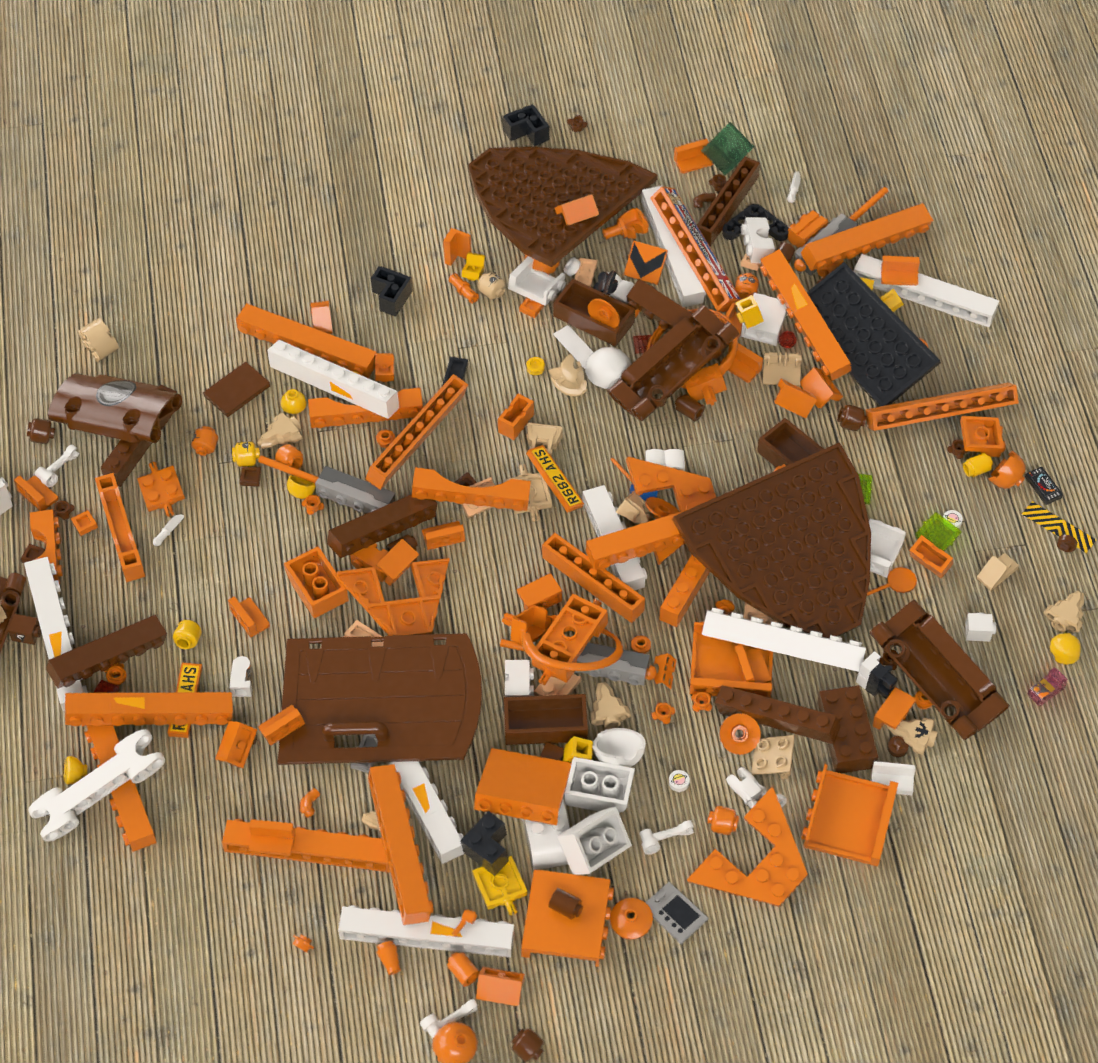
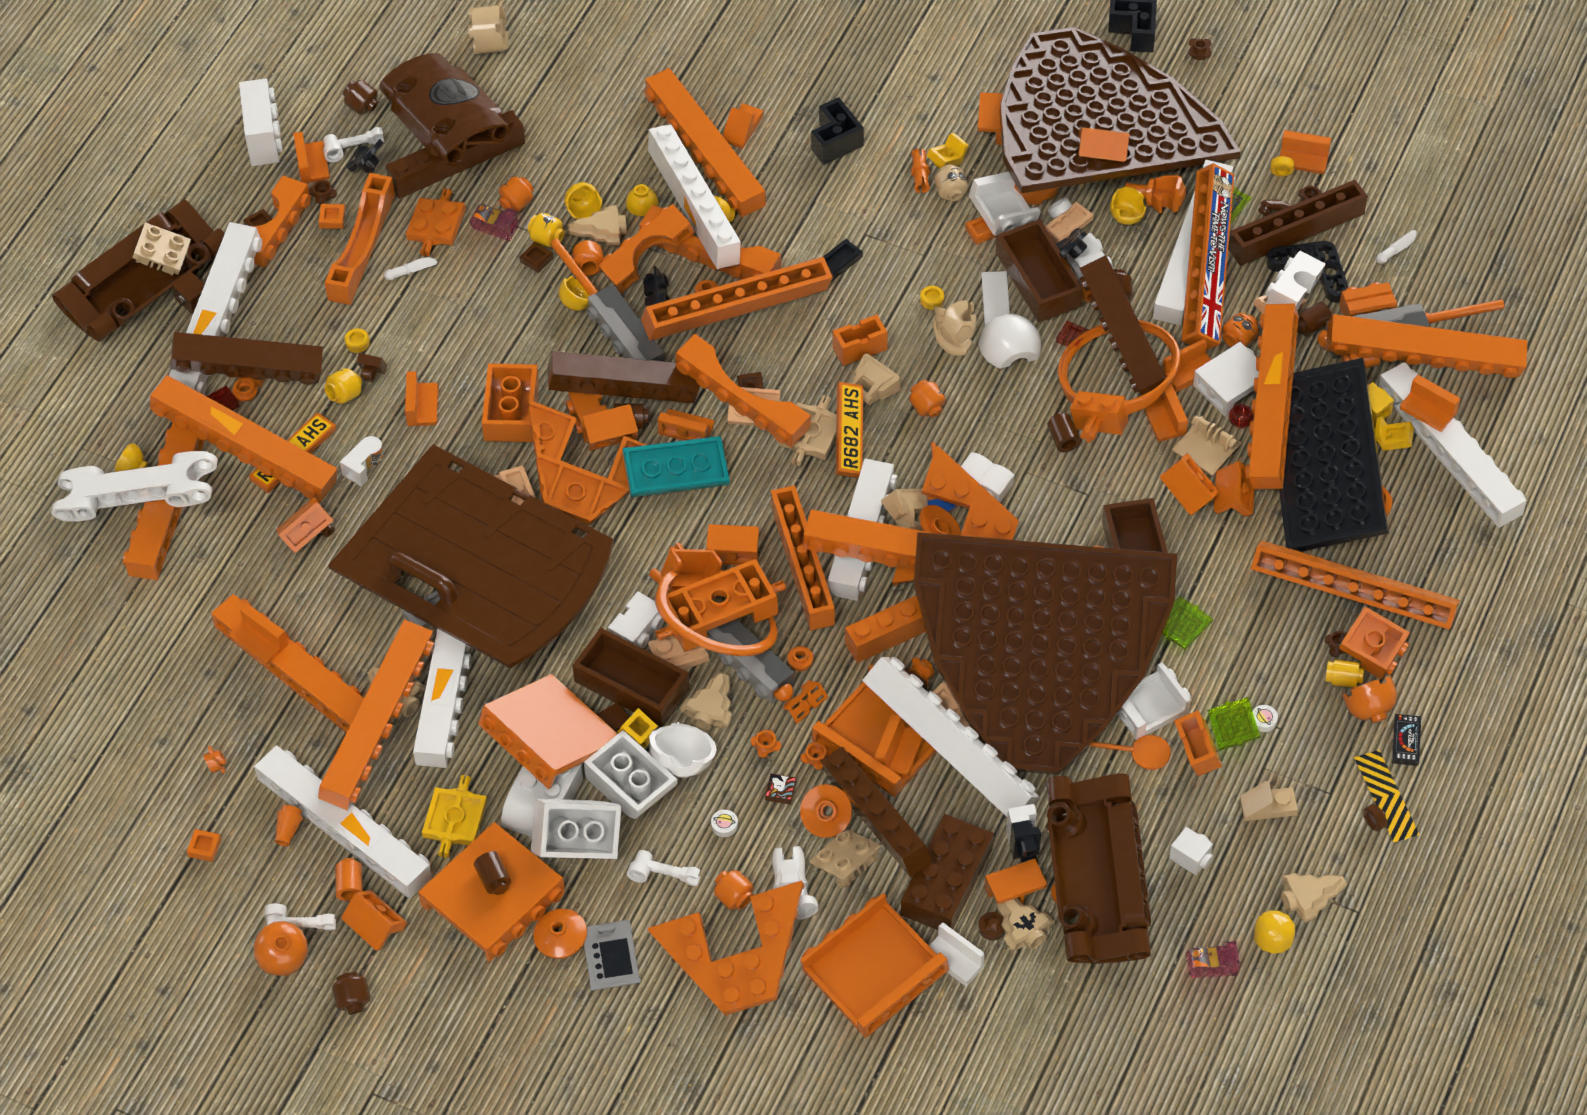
camera: 35 degrees right, 0 degrees up
(77, 471) = (365, 158): none -> black animal
(169, 598) = (357, 340): none -> yellow tile
(195, 609) = (370, 366): none -> reddish brown tile
(203, 467) = (495, 221): none -> clear pink leg
(236, 389) = (594, 157): reddish brown tile -> none
(255, 421) = (582, 200): none -> yellow hair
(281, 724) = (357, 529): orange panel -> none
(306, 802) = (329, 623): orange arm -> none
(312, 500) = (576, 315): orange plate -> none
(335, 408) = (667, 228): none -> orange arch
(342, 1007) = (204, 845): none -> orange plate
(348, 452) = (655, 285): none -> black hinge
(384, 367) = (764, 213): orange bracket -> none
(456, 244) = (942, 117): orange panel -> none
(460, 564) = (675, 466): none -> teal tile
(467, 916) = (386, 827): orange hand -> none
(483, 843) = (464, 761): black brick -> none
(484, 229) = (989, 114): none -> orange panel
(587, 432) = (927, 398): none -> orange head
(604, 313) = (1040, 275): orange dish -> none
(614, 244) = (1127, 206): none -> yellow hair
(645, 262) = (1145, 244): piece -> none
(671, 362) = (1074, 368): reddish brown panel -> none
(687, 171) = (1282, 166): none -> yellow tile
(696, 737) = (780, 789): none -> tile
(727, 148) = (1345, 160): clear green piece -> none
(749, 312) = (1206, 358): yellow brick -> none
(851, 417) = (1239, 541): reddish brown head -> none

